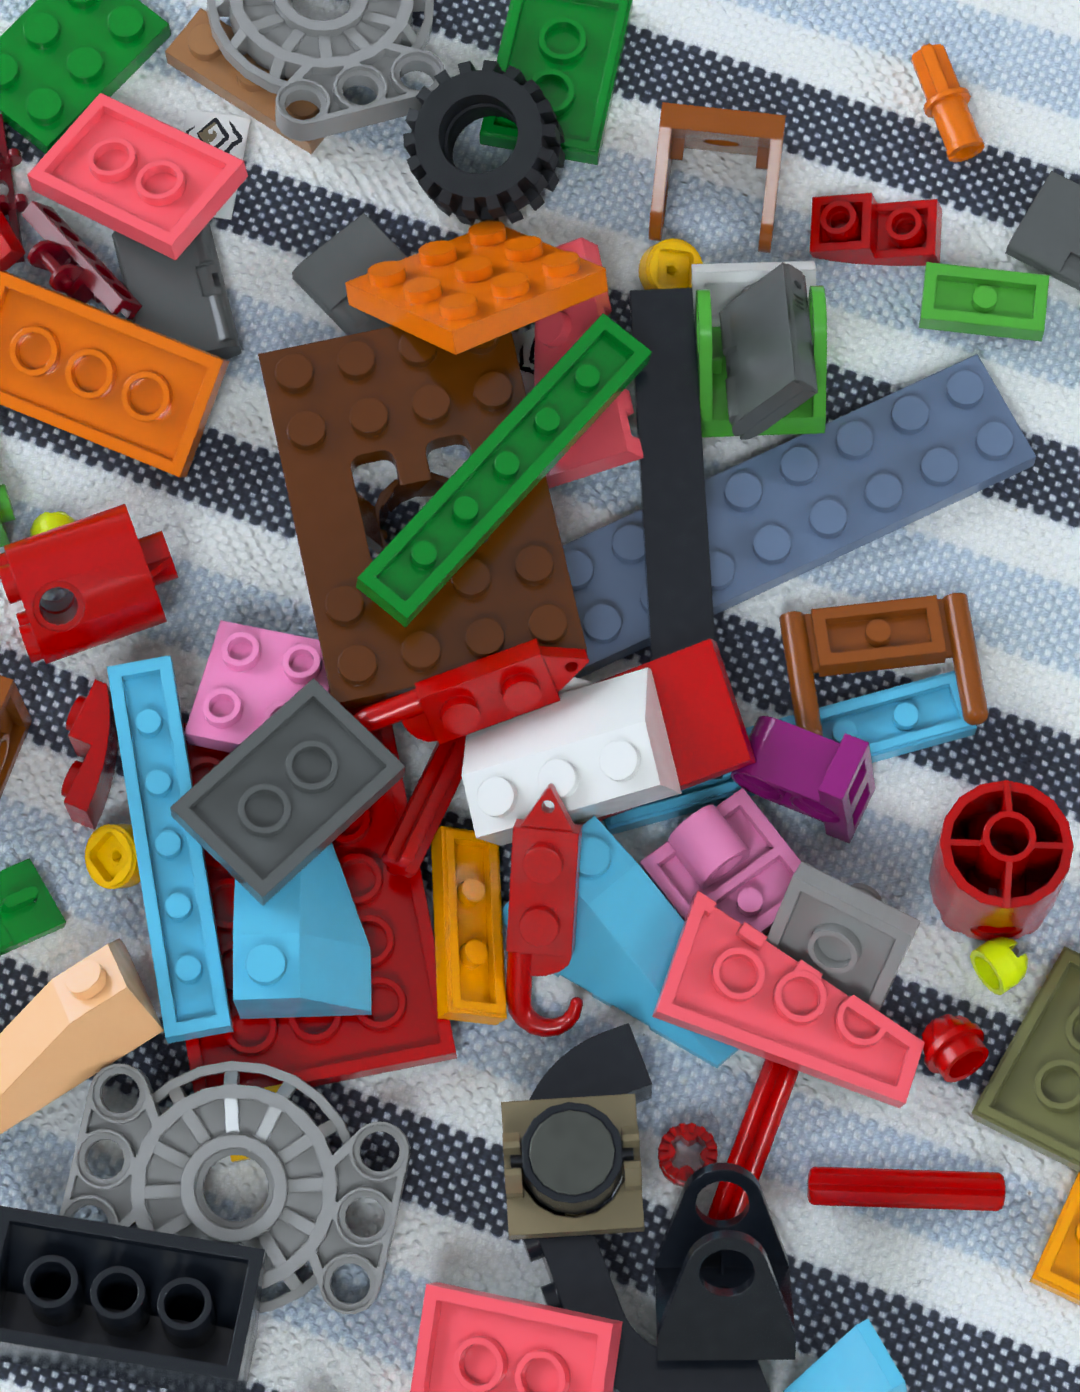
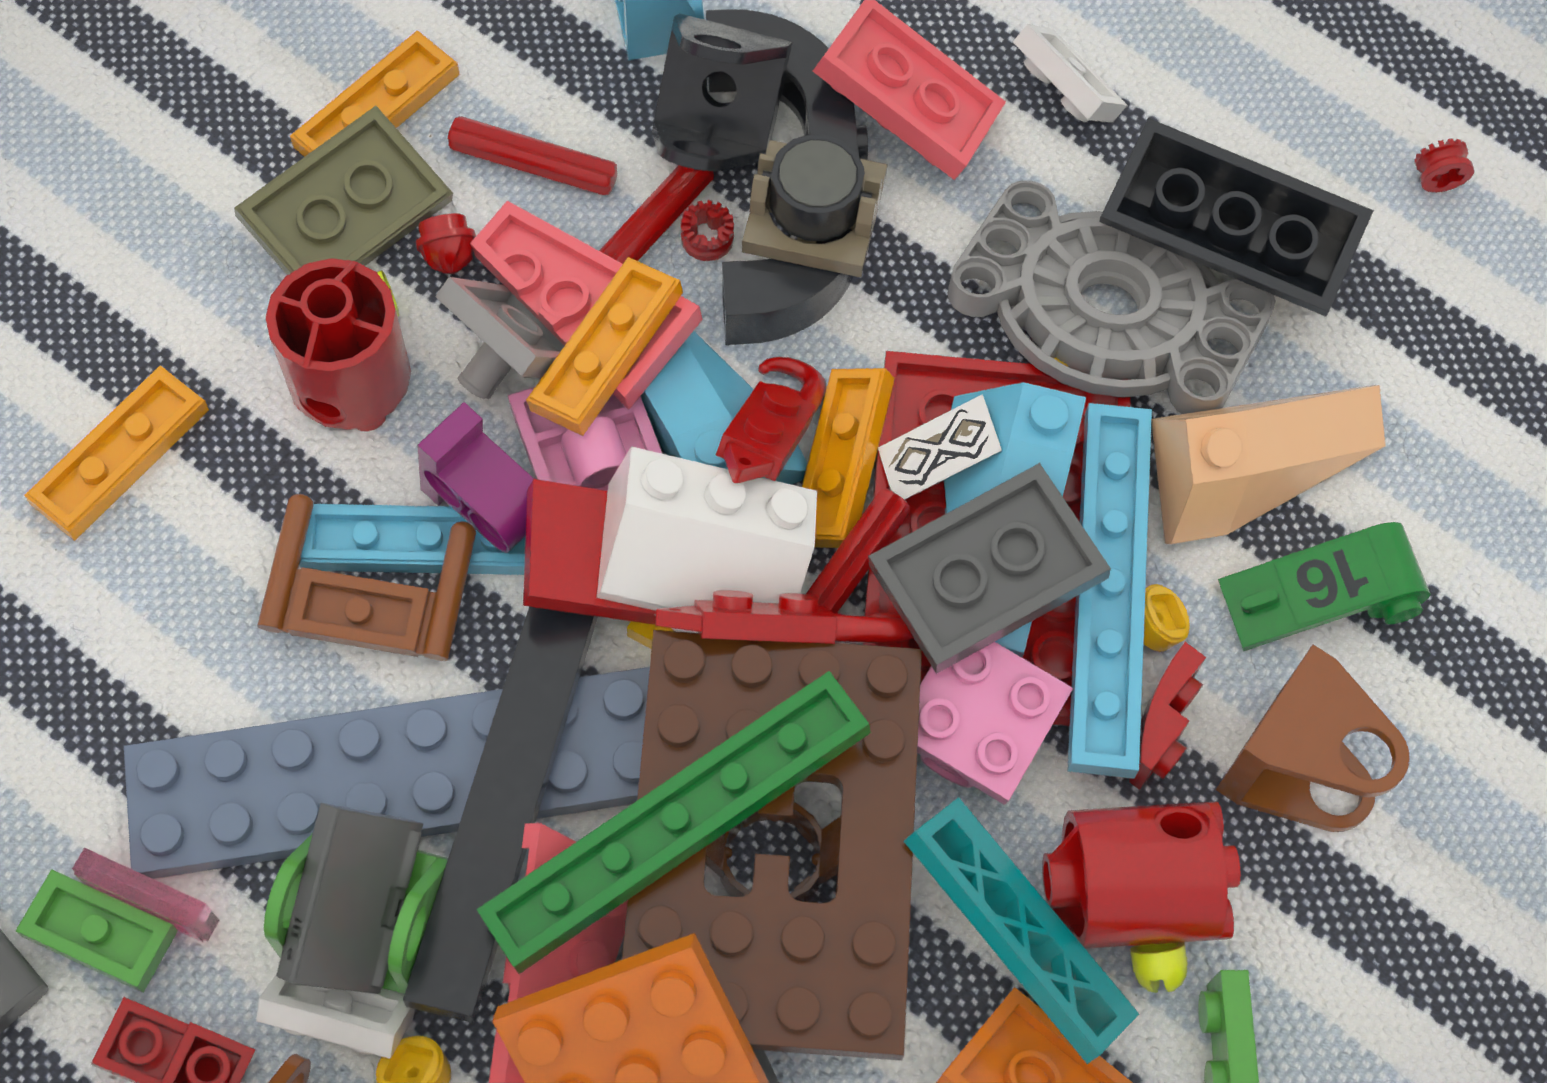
camera: 170 degrees left, 5 degrees down
(176, 506) = (1022, 929): none -> teal fence
(369, 930) = (940, 448): none -> white sticker
(735, 937) = (605, 346): none -> light orange tile
(954, 336) = (127, 885): none -> clear pink tile

